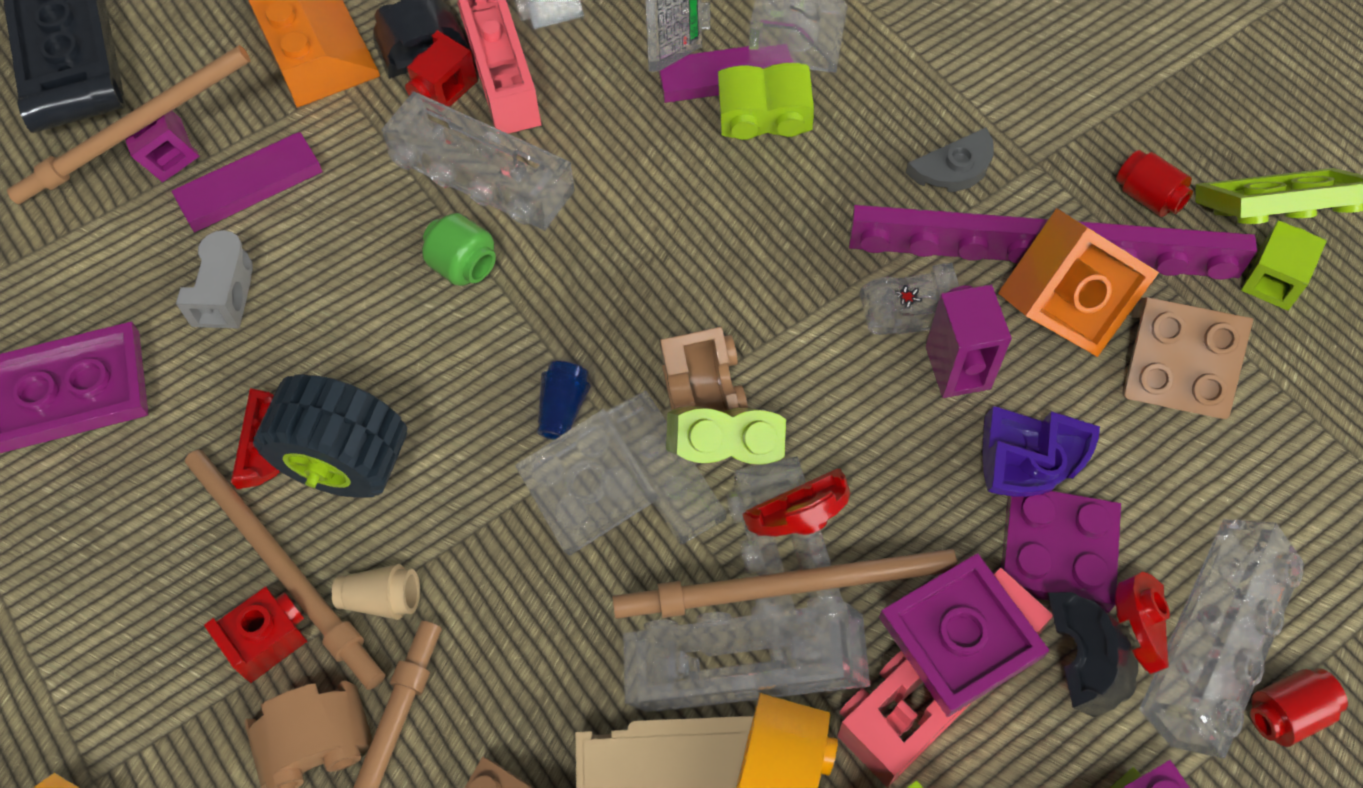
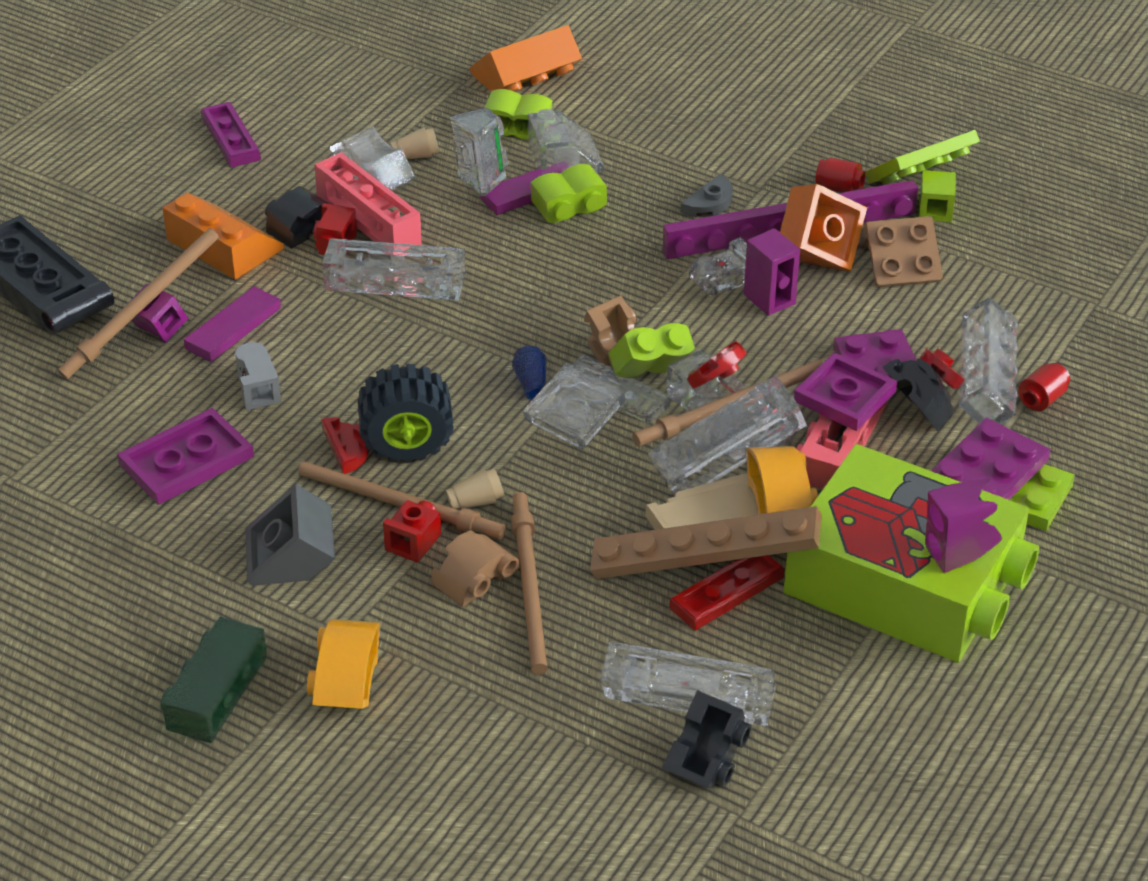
camera: 25 degrees left, 20 degrees down
(98, 593) = (290, 539): none -> dark grey slope
(458, 249) = (414, 315): bright green head -> none
(1033, 455) = (839, 321): dark purple brick -> none

